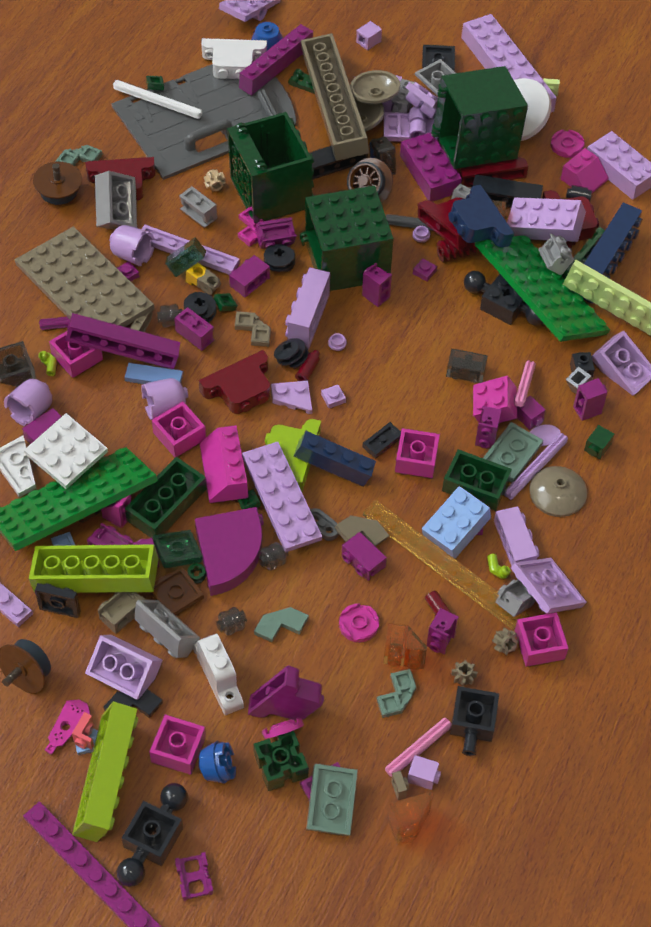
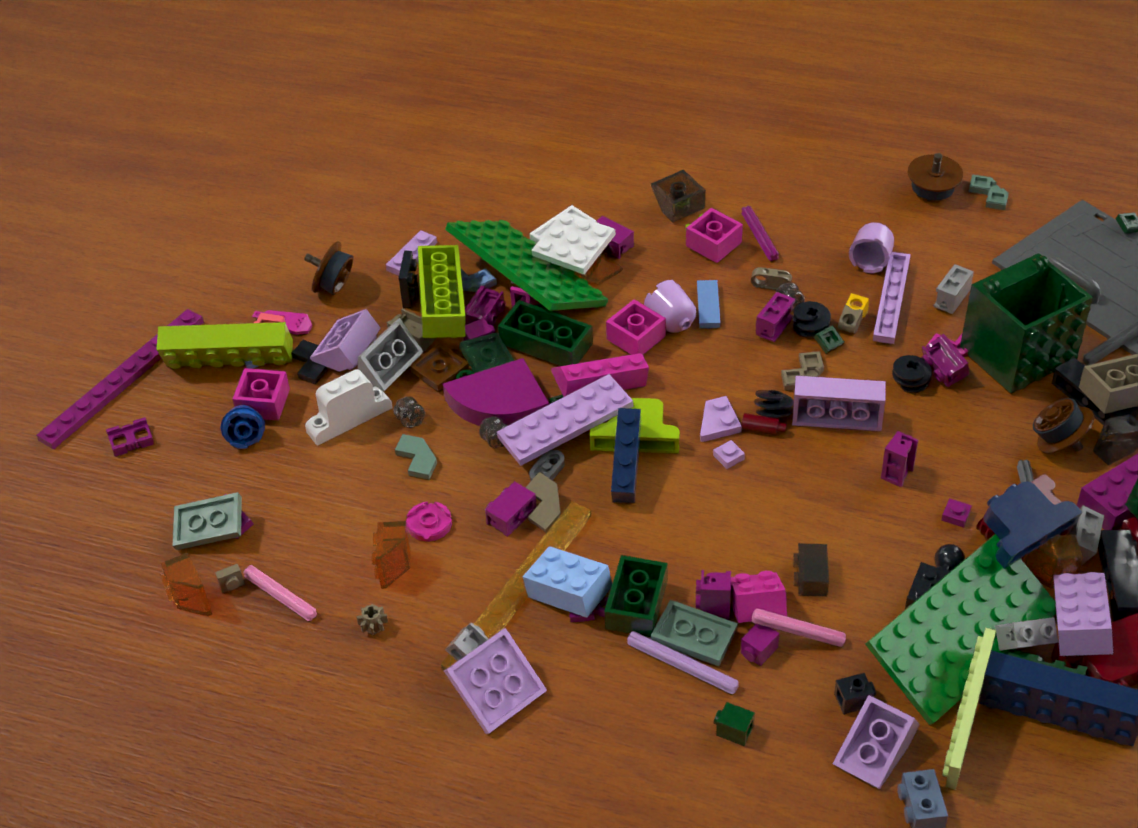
camera: 85 degrees right, 10 degrees down
(28, 401) = (639, 214): lavender cylinder -> none
(83, 280) = (806, 226): dark tan plate -> none
(115, 200) = (927, 221): light grey slope -> none
(122, 341) = (729, 259): magenta brick -> none
(129, 271) = (839, 258): magenta plate -> none
(140, 168) = (971, 226): dark red brick -> none
(152, 847) = (167, 393): black brick -> none
(157, 99) = (1105, 231): white axle -> none
(185, 257) = (869, 287): clear green brick -> none
(239, 384) = (717, 370): dark red brick -> none
(249, 276) = (873, 351): magenta brick -> none
(282, 728) = (283, 468): dark pink tile -> none
(285, 749) = (249, 473): dark green brick -> none
(286, 696) = (312, 457): magenta brick -> none
(337, 342) = (808, 444): lavender plate -> none
(347, 235) = (952, 409): dark green piece -> none
(382, 440) = (676, 505): black plate -> none
(396, 702) = (352, 572): sand green tile -> none
(417, 453) = (661, 533): dark pink brick -> none
(423, 772) = (246, 597): lavender brick -> none
(436, 602) = (455, 589): dark red cylinder -> none
(441, 631) = (416, 584): magenta hinge -> none
(474, 717) = (314, 630): black brick -> none
(499, 571) = (522, 636): lime arm -> none
(505, 641) = (418, 652): dark tan gear -> none
(515, 535) = (565, 648): lavender brick -> none
(541, 639) = (422, 684): dark pink brick -> none
(546, 433) = (737, 667): lavender sticker -> none
(554, 498) = (652, 702): dark tan dish -> none
(577, 378) = (820, 689): flat silver brick -> none
(590, 399) = (793, 699): magenta brick -> none

